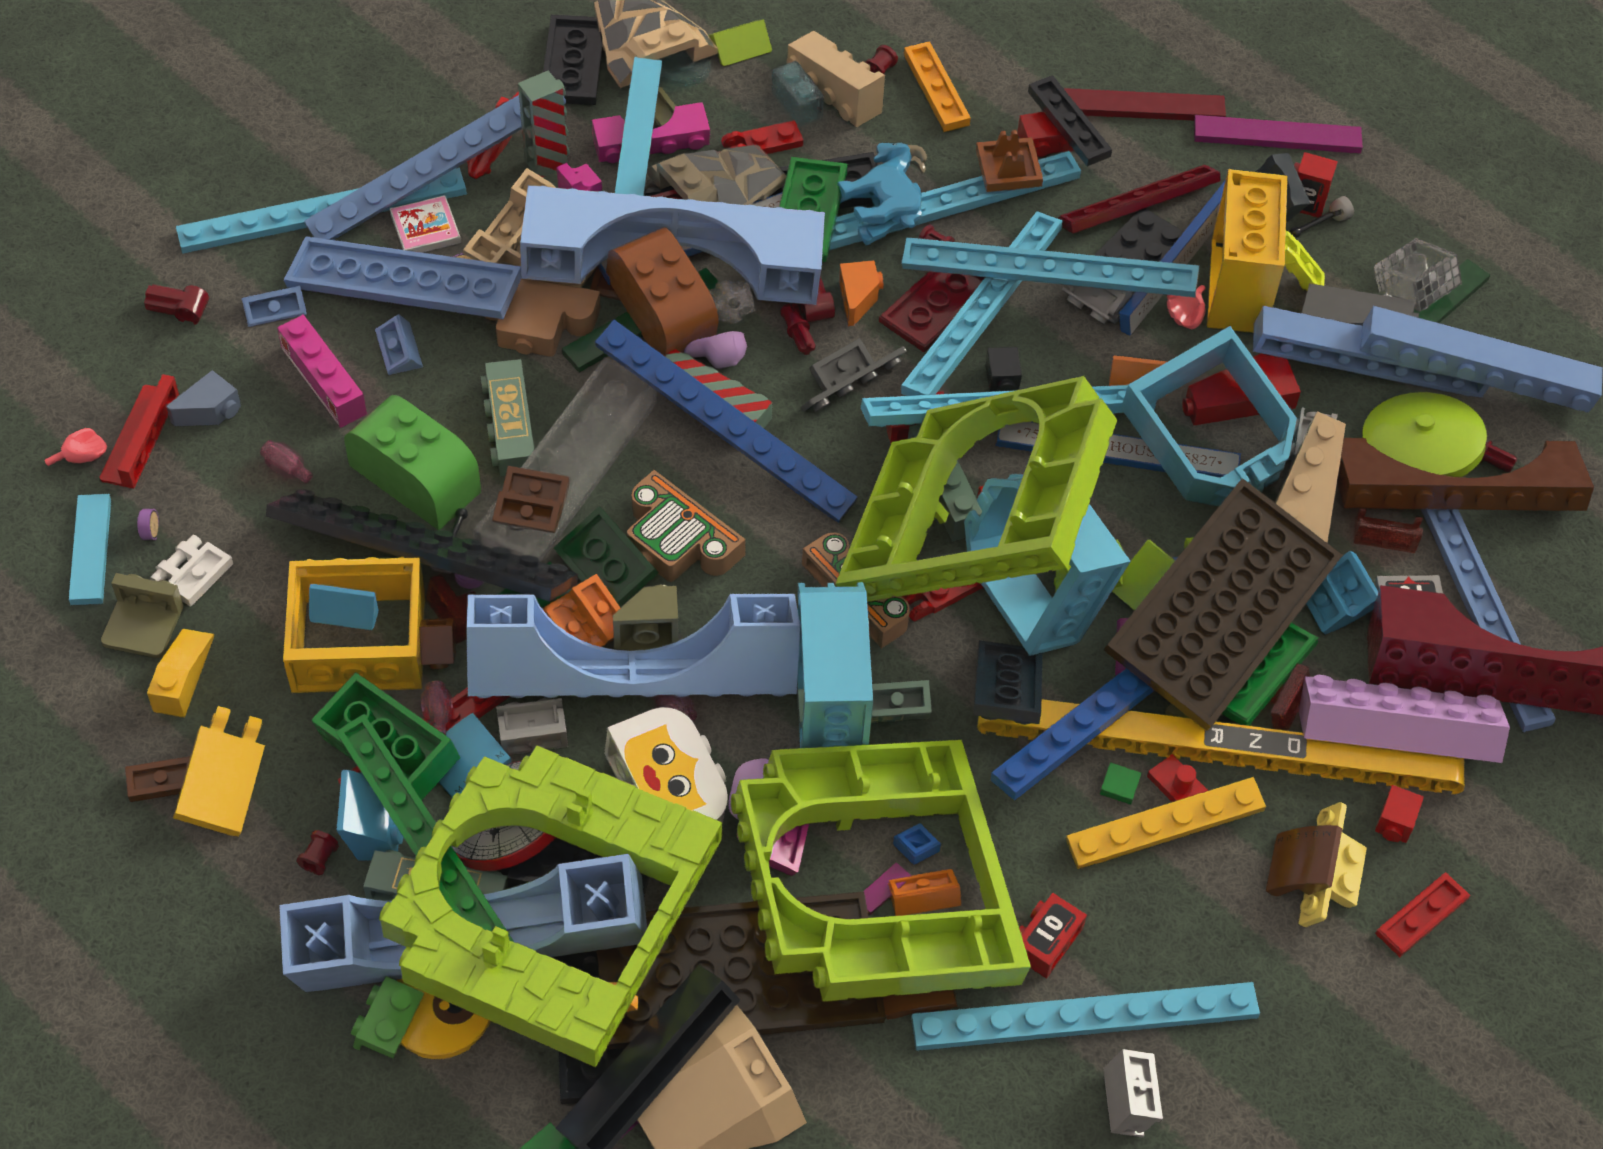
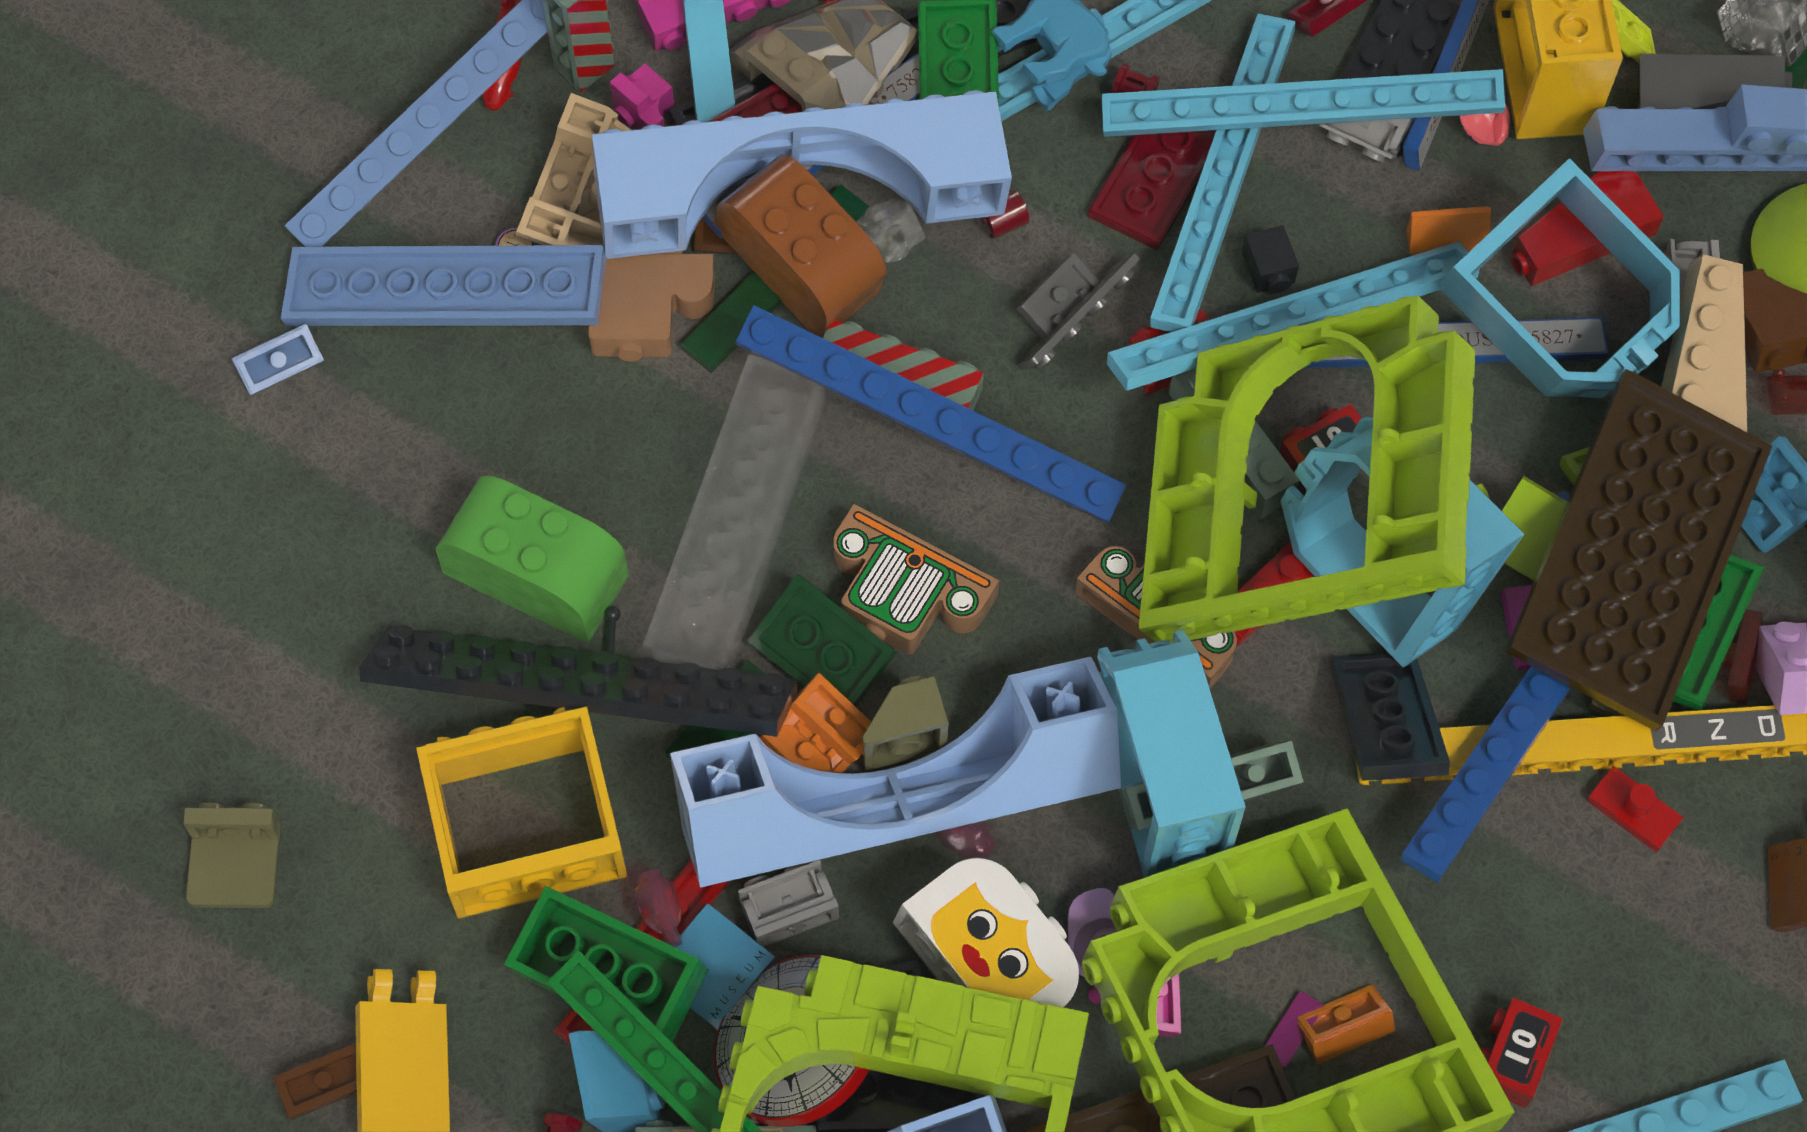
camera: 10 degrees left, 10 degrees up
(80, 448) = (77, 624): coral piece -> none
(90, 549) = (132, 769): medium azure tile -> none
(140, 433) = (149, 586): red panel -> none
(148, 524) = (201, 718): medium lavender tile -> none
(179, 673) = (305, 922): yellow slope -> none
(184, 304) = (155, 381): dark red piece -> none
(200, 571) = (288, 775): white plate -> none
(205, 403) = (228, 524): sand blue slope -> none
(285, 461) = (358, 587): clear pink plant -> none
(292, 215) = (262, 218): medium azure plate -> none
(322, 371) = (371, 445): dark pink brick -> none
(342, 607) = (508, 804): dark azure slope -> none
(398, 345) = (460, 383): medium blue slope -> none
(425, 225) = (447, 195): tile -> none
(437, 642) = (634, 811): reddish brown brick -> none
(448, 605) = (638, 756): clear red tile -> none
(509, 414) = (640, 462): sand green brick -> none
(531, 499) = (709, 588): reddish brown slope -> none
(720, 350) = (894, 308): lavender piece -> none
(798, 328) = (986, 251): dark red axle -> none
(859, 288) = (1052, 176): orange slope -> none
(916, 843) = (1321, 960): blue tile -> none
(1120, 783) = (1556, 819): green tile -> none
(1165, 823) = (1627, 865): yellow plate -> none

